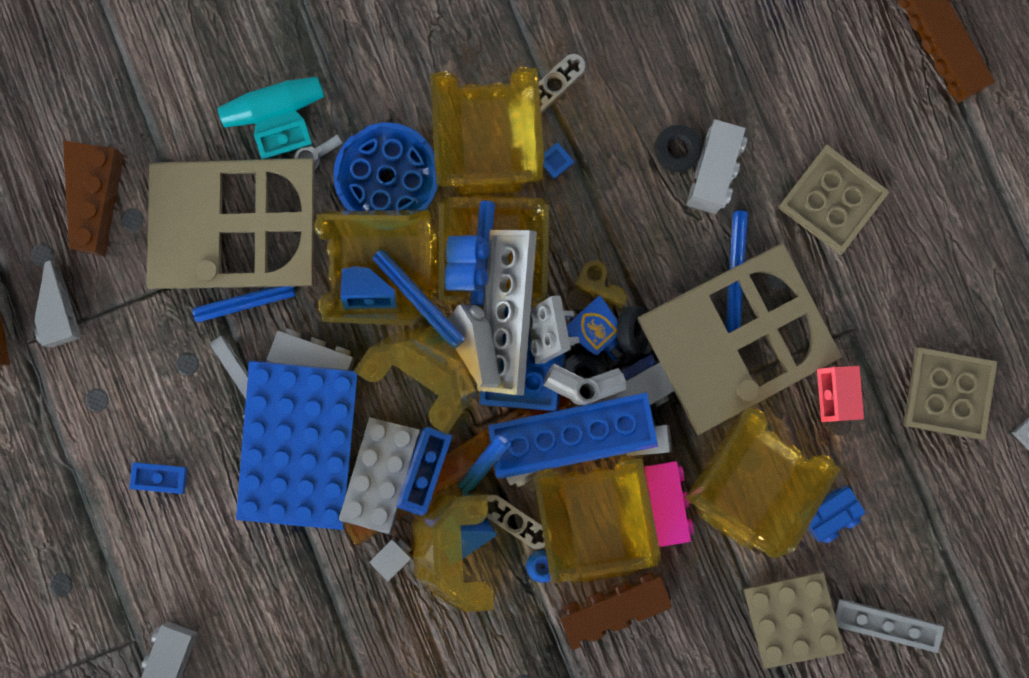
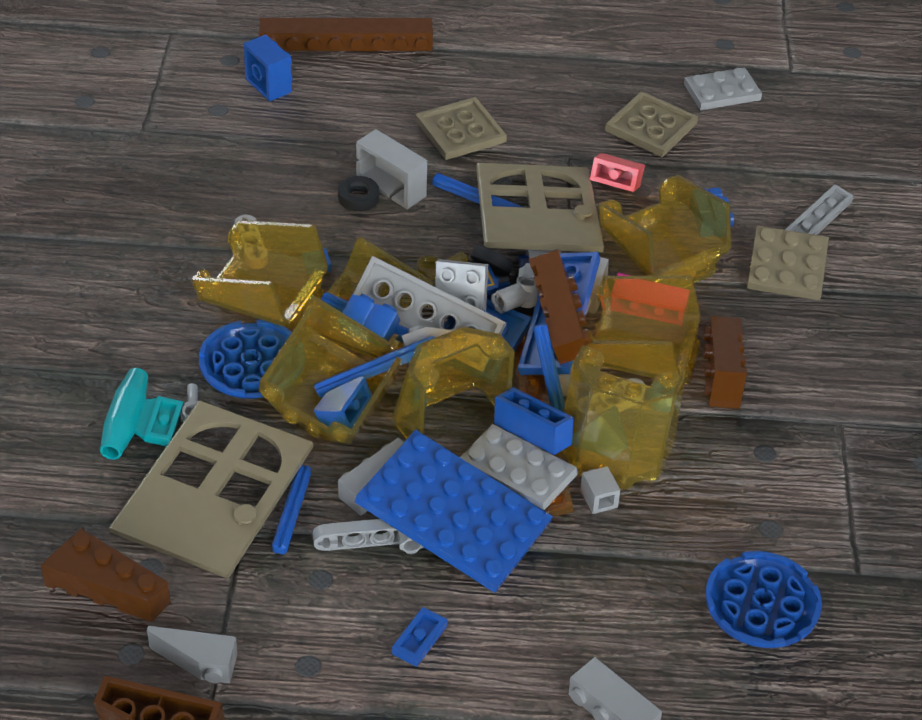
camera: 70 degrees left, 40 degrees down
(552, 445) = (560, 305): none -> reddish brown wedge

